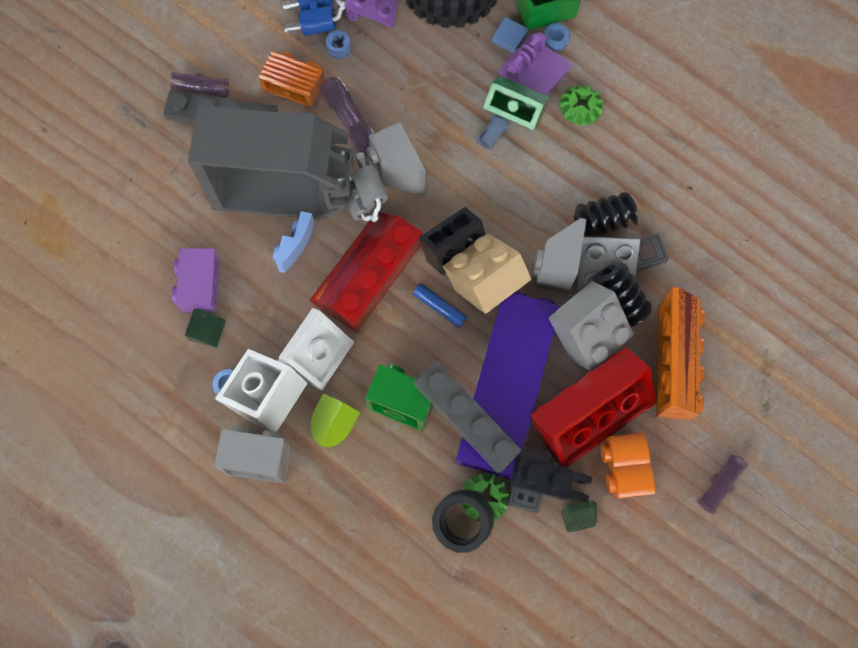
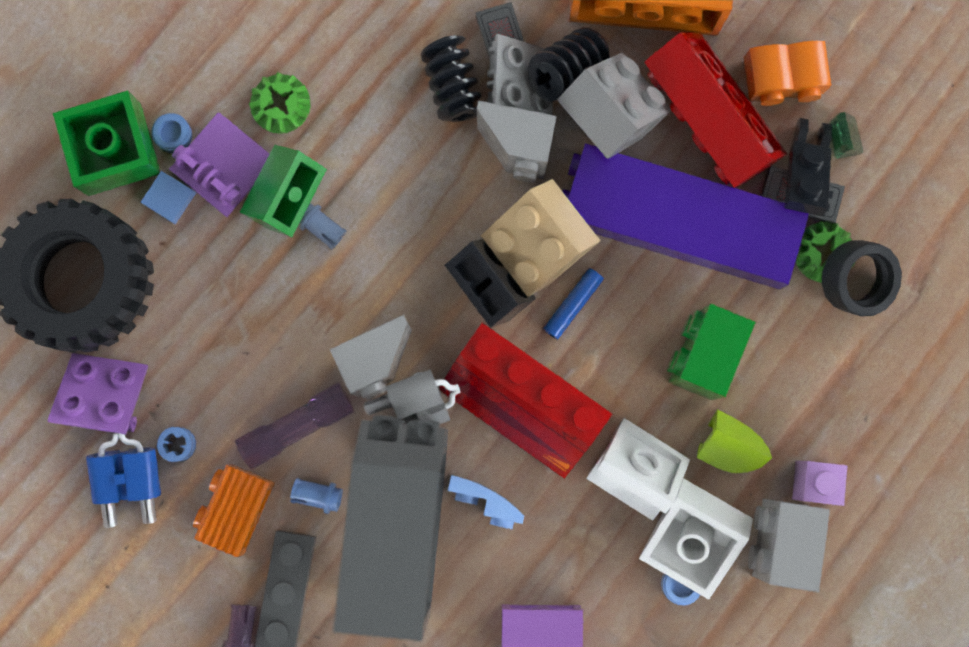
camera: 85 degrees left, 10 degrees up
(205, 328) = (606, 618): clear green slope -> none
(301, 485) = (819, 482): none -> lavender brick
(466, 416) = (745, 268): dark grey plate -> none

